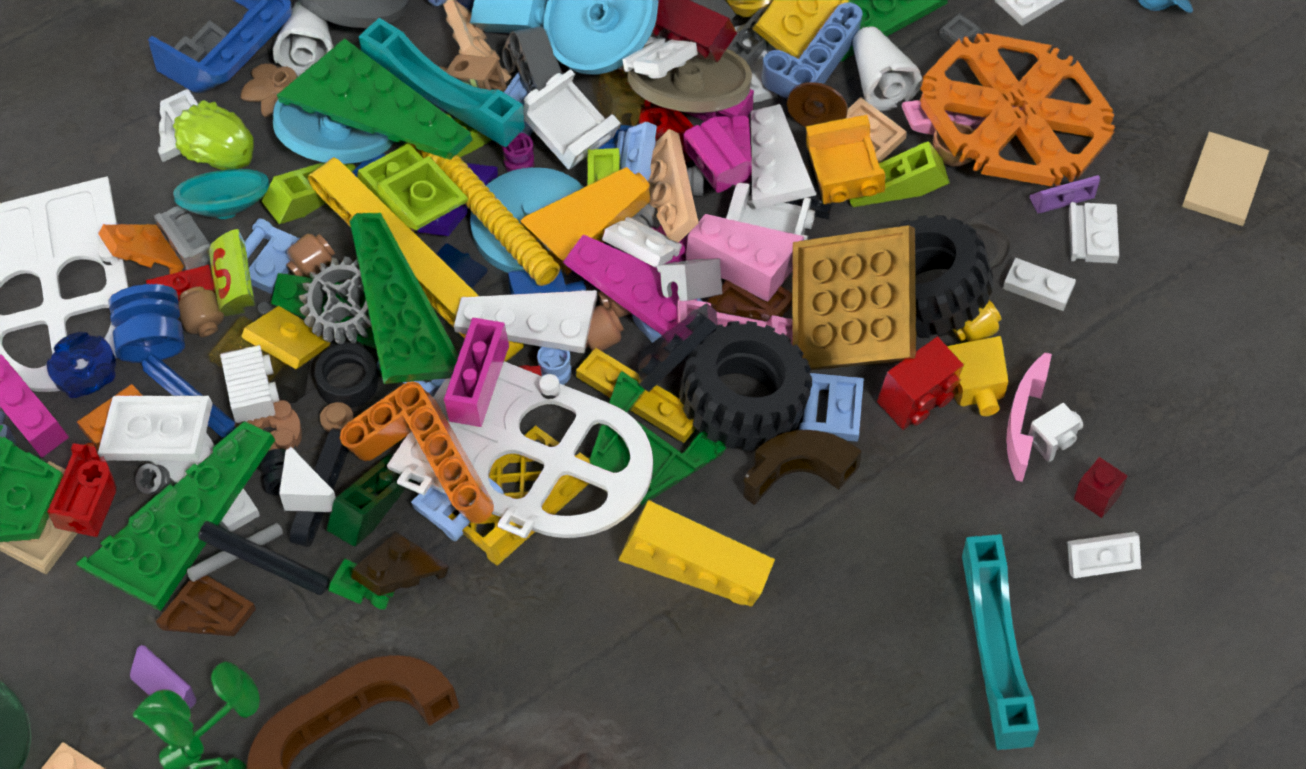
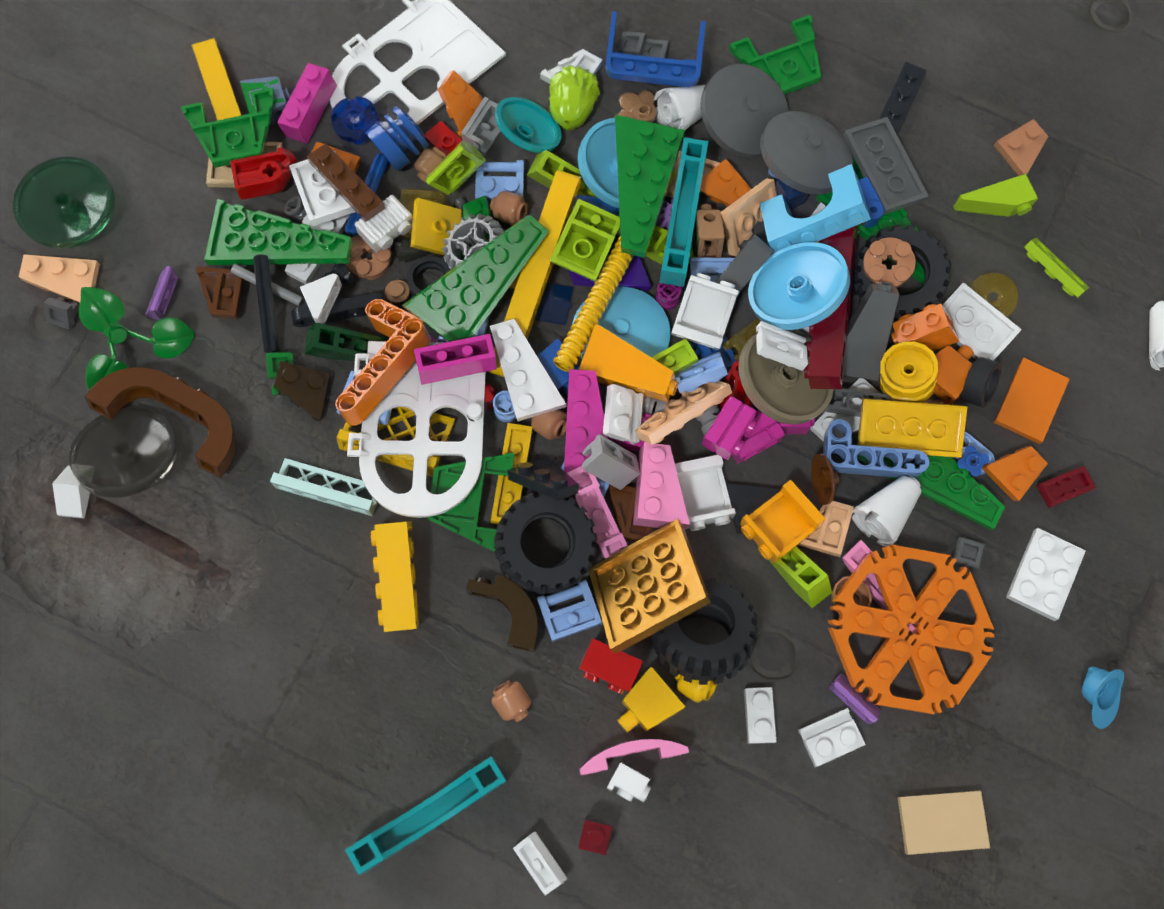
camera: 60 degrees right, 15 degrees up
(169, 394) = (346, 182): none -> reddish brown plate
(434, 42) = (724, 184): none -> orange wing
(543, 601) = (326, 492): none -> light aqua fence
(776, 160) = (752, 476): white wing -> none
(907, 505) = (511, 701): none -> nougat head

